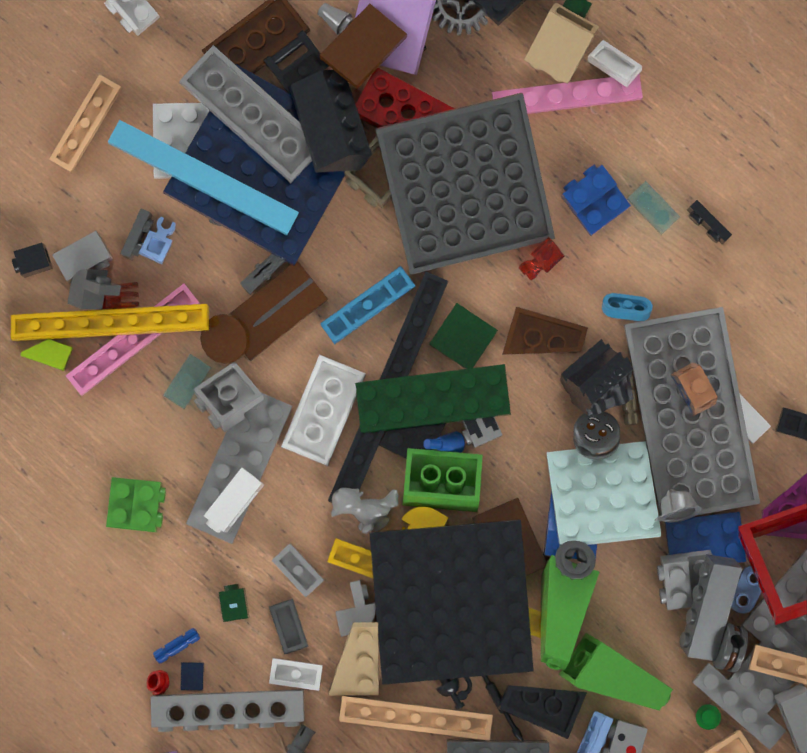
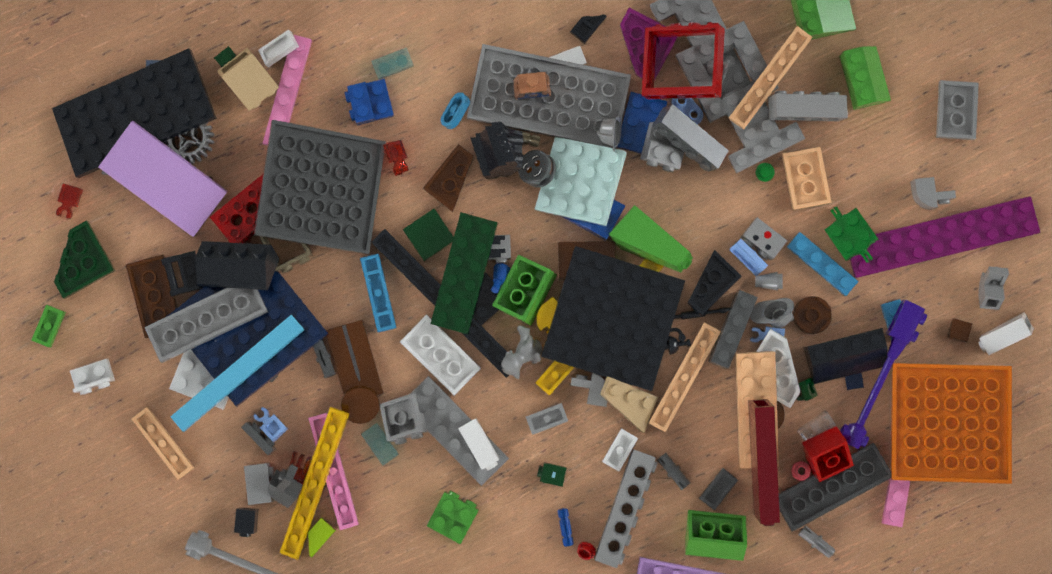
camera: 70 degrees left, 0 degrees up
(192, 676) = (591, 525): dark blue sticker -> none
(288, 626) = (583, 441): dark grey tile -> none
(335, 18) = (164, 231): light grey cone -> none
(363, 46) = (190, 220): reddish brown tile -> none
(584, 555) = (619, 210): dark grey gear -> none
(608, 673) = (709, 226): bright green slope -> none
(714, 228) = (412, 32): black plate -> none
(732, 648) = (725, 135): dark grey head -> none

